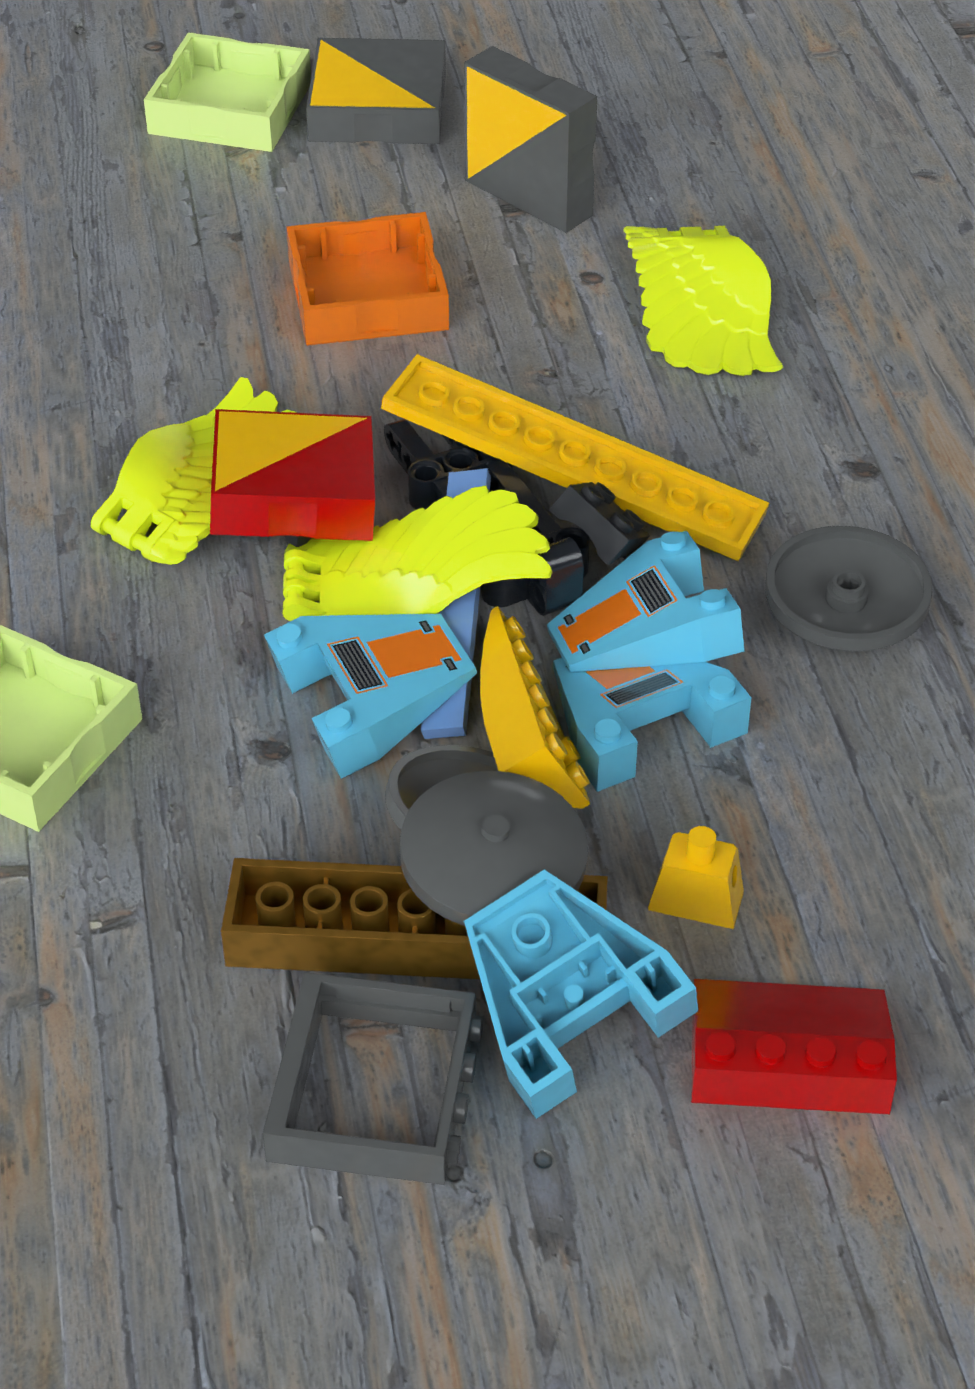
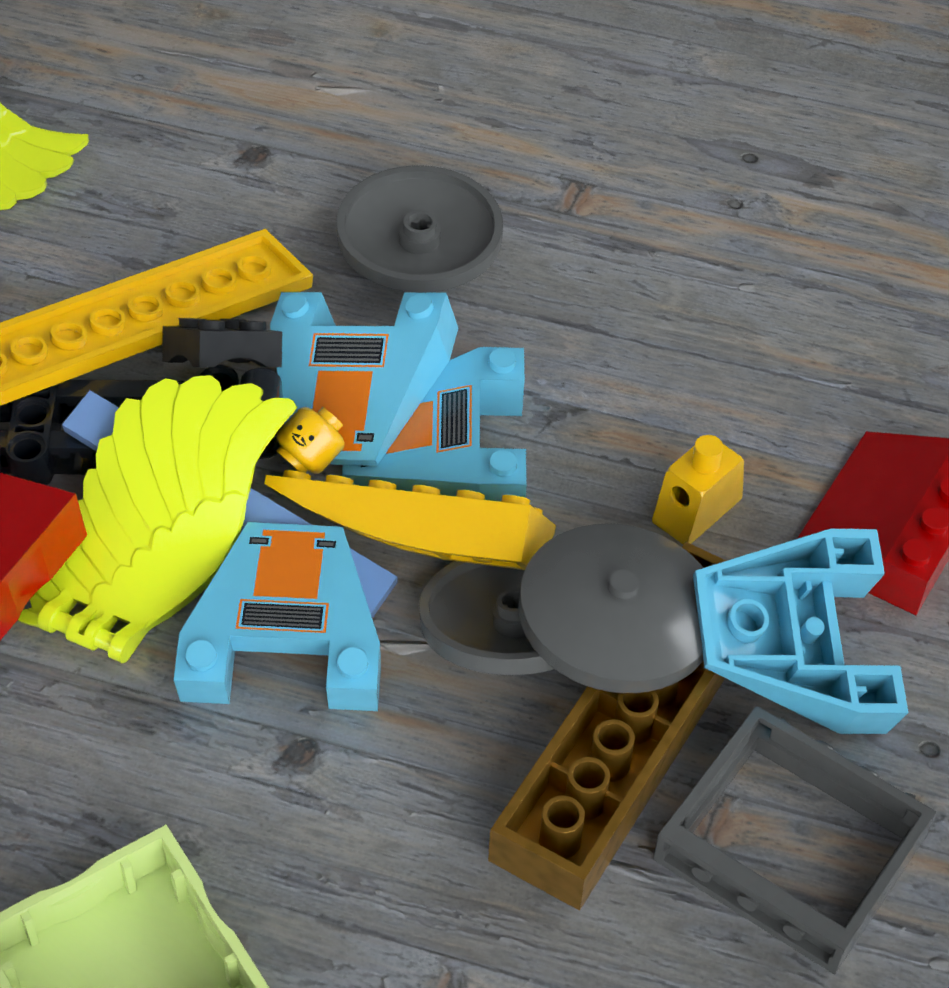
camera: 65 degrees left, 5 degrees up
(550, 615) = (310, 440): none -> yellow head

